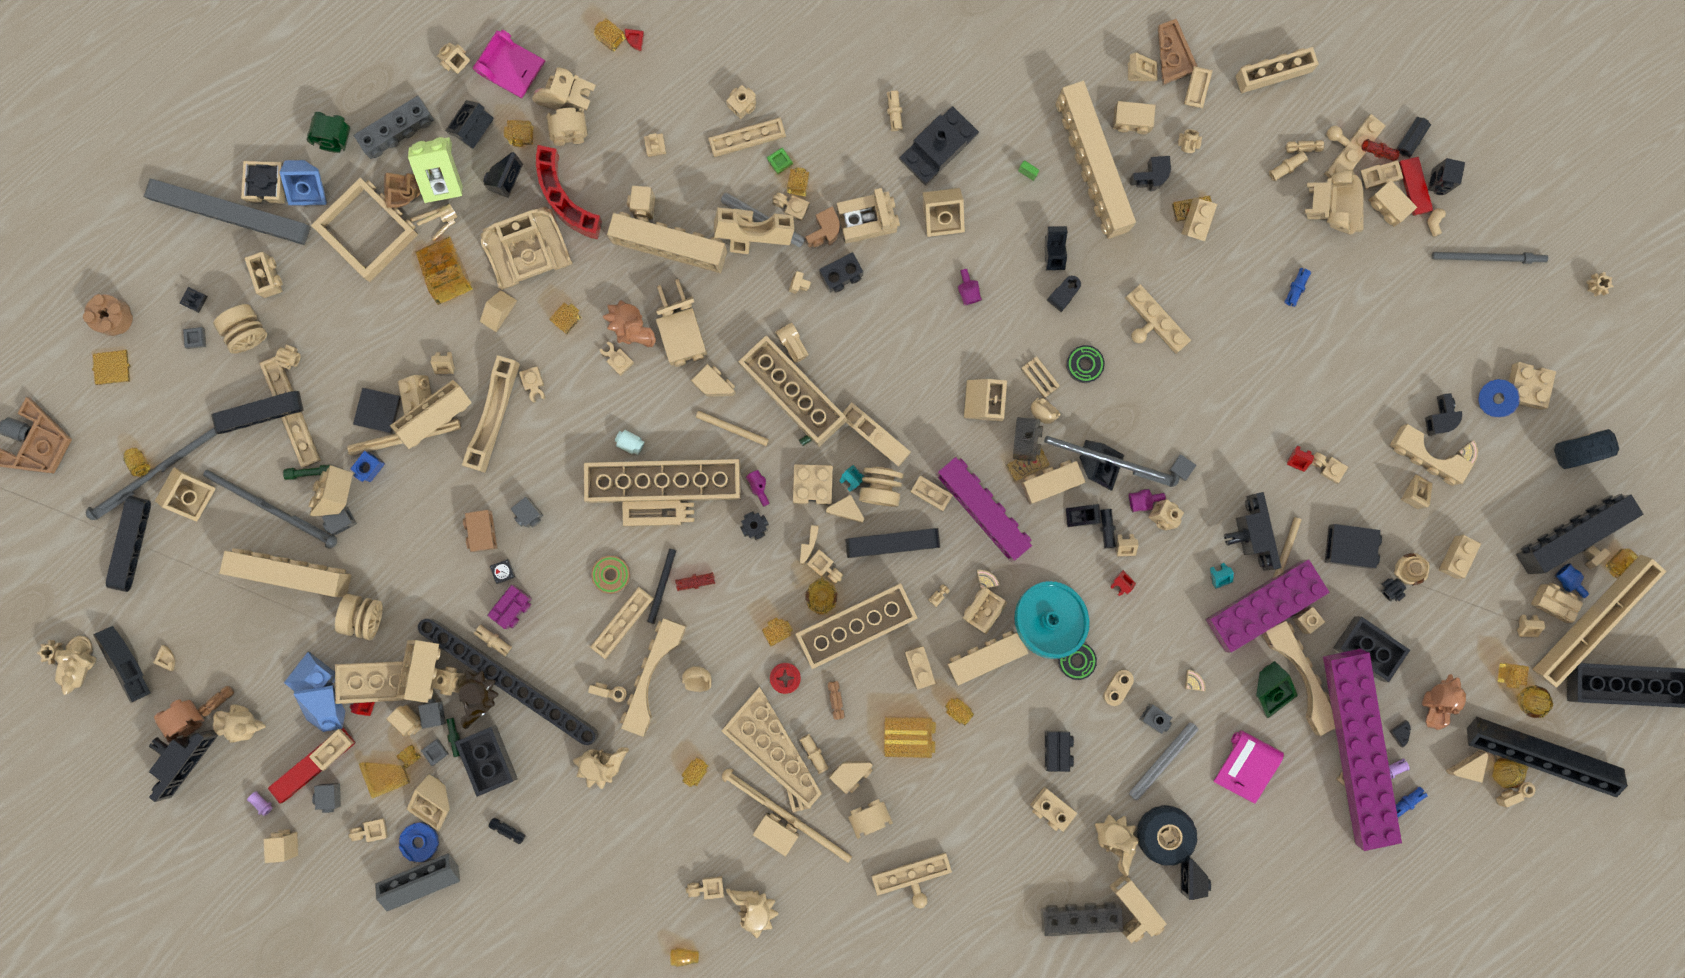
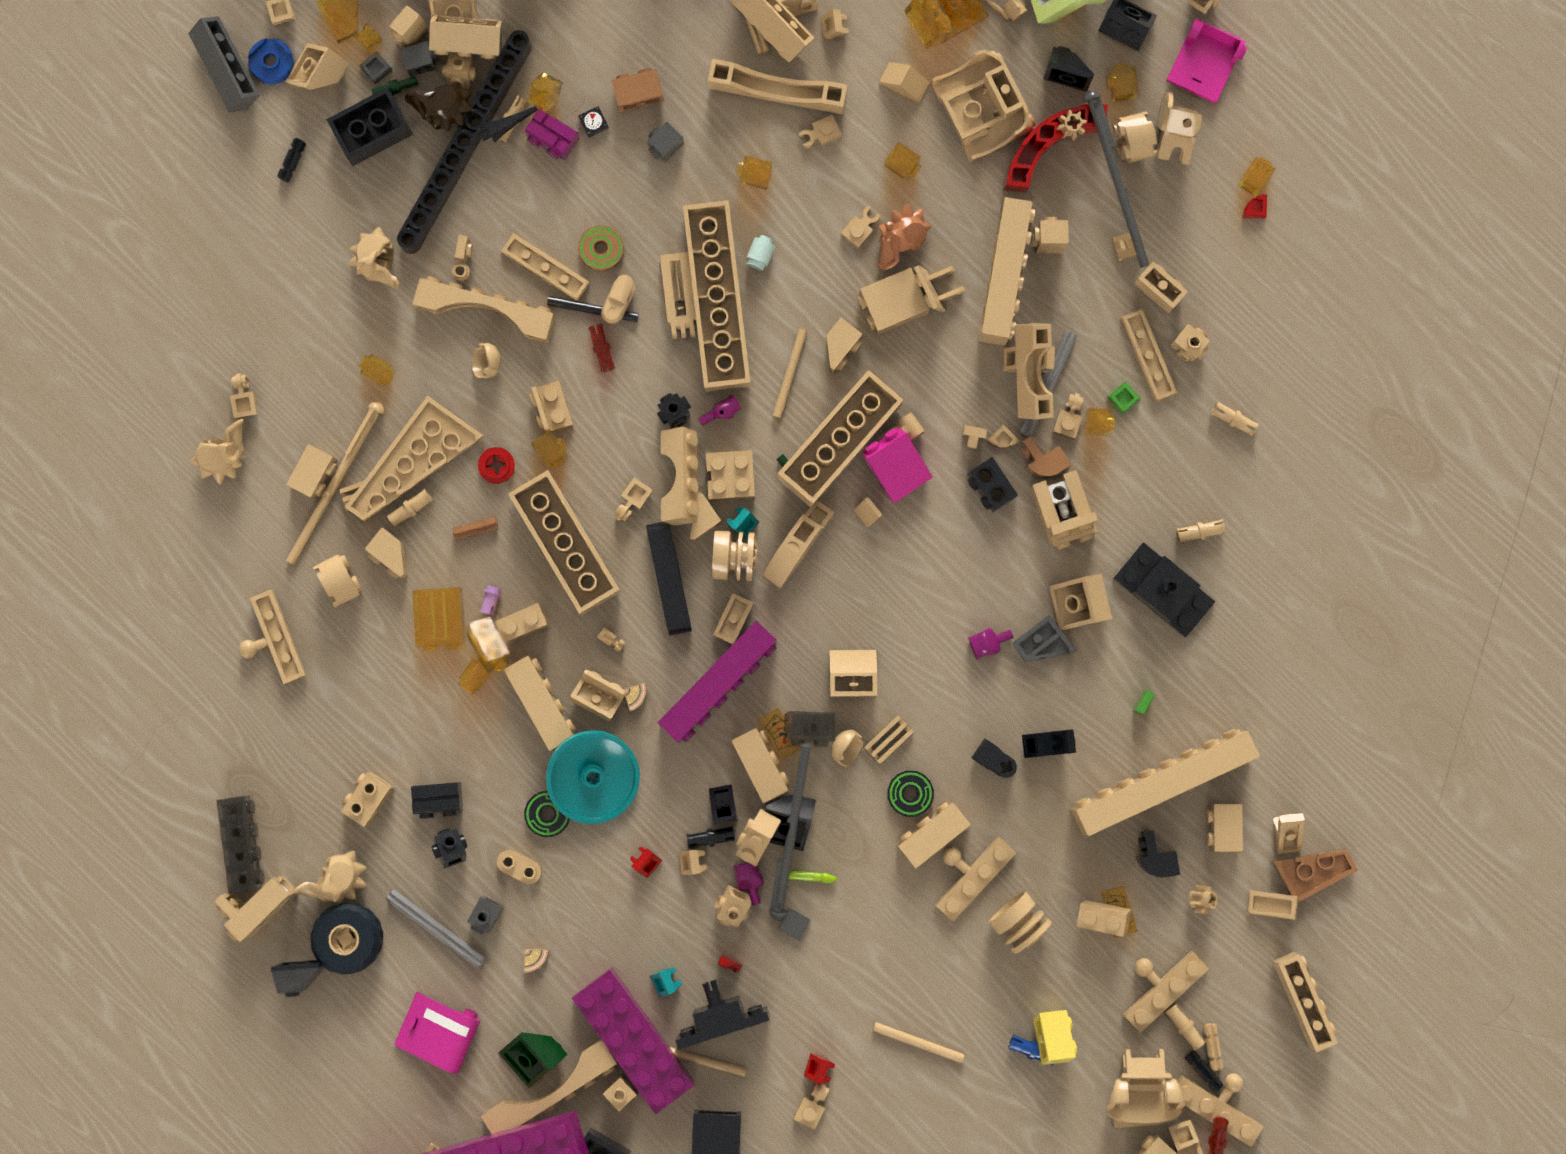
camera: 90 degrees right, 0 degrees up
(473, 609) = (544, 91): none -> clear yellow brick
(499, 649) = (499, 127): none -> black piece
(557, 175) = (1068, 130): none -> tan gear
(561, 440) = (755, 172): none -> clear yellow brick
(569, 148) = (1107, 142): none -> dark grey bar
(657, 563) = (618, 300): none -> tan arm
(682, 957) = (161, 378): clear yellow cone -> none
(693, 119) = (1161, 287): none -> tan brick
(740, 627) = (551, 407): none -> tan bracket
(803, 260) = (1003, 438): none -> tan tile
(806, 74) = (1234, 418): none -> tan pin
(806, 549) = (651, 476): tan slope -> none
(818, 347) = (896, 464): none -> dark pink brick
(821, 596) = (596, 498): clear yellow hair -> none
(832, 525) = (681, 502): none -> tan arch
(854, 375) = (868, 512): none -> tan slope
(897, 692) = (490, 600): none -> lavender pin
(936, 696) = (488, 645): none -> clear yellow brick
(972, 245) = (1043, 642): none -> dark grey wing
(1106, 743) = (449, 847): none -> black brick
(1113, 489) = (757, 838): none -> tan brick
(1120, 348) = (933, 834): none -> tan brick
(1146, 448) = (811, 876): none -> lime piece
(1197, 285) = (1020, 922): none -> tan wheel
(1210, 523) = (729, 963): none -> red tile
(1257, 179) = (1164, 990): none -> tan plate
(1284, 377) = (918, 1042): none -> tan bar
(1290, 268) = (1054, 1037): none -> light yellow brick
(1323, 155) = (1204, 1071): none -> black axle

